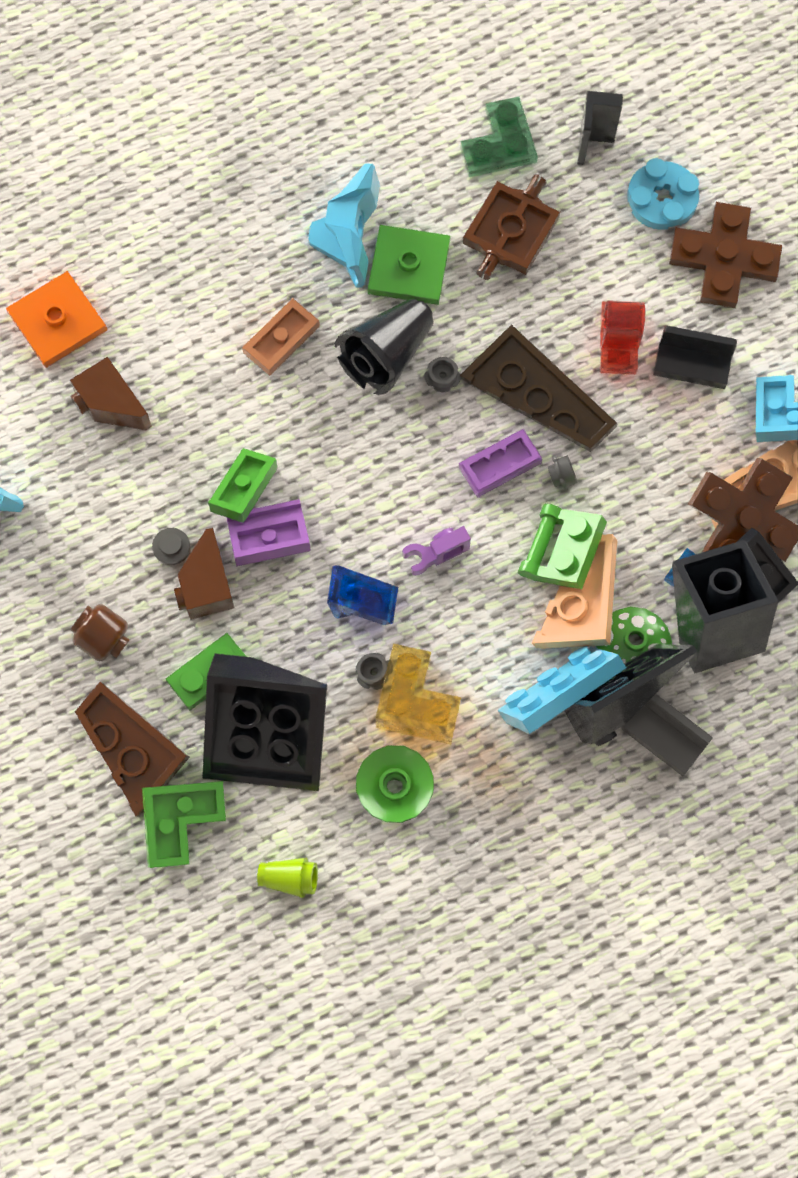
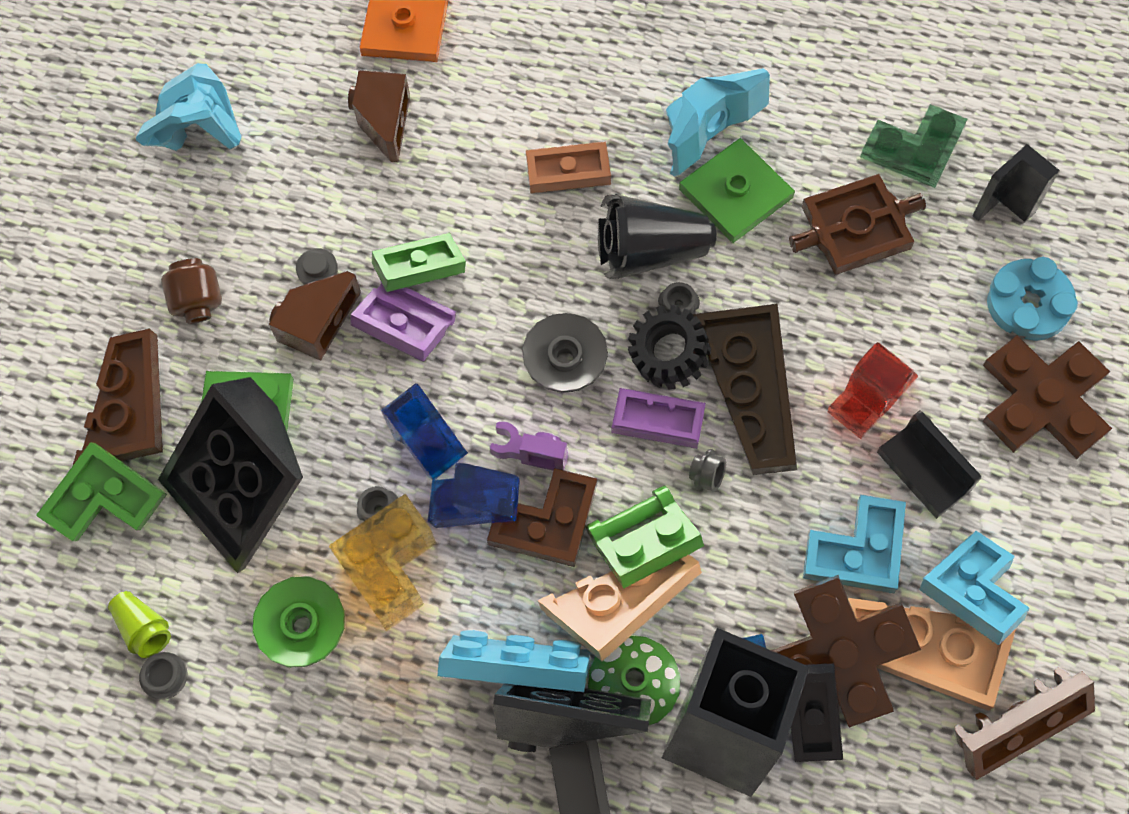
camera: 45 degrees right, 5 degrees down
(336, 893) = (163, 675): none -> dark grey plate
(401, 451) = (561, 335): none -> dark grey dish
(433, 612) = (473, 497): none -> clear blue slope
(460, 388) = (653, 330): none -> black tyre
(500, 591) = (556, 529): none -> reddish brown plate
(707, 445) = (868, 558): none -> medium azure plate

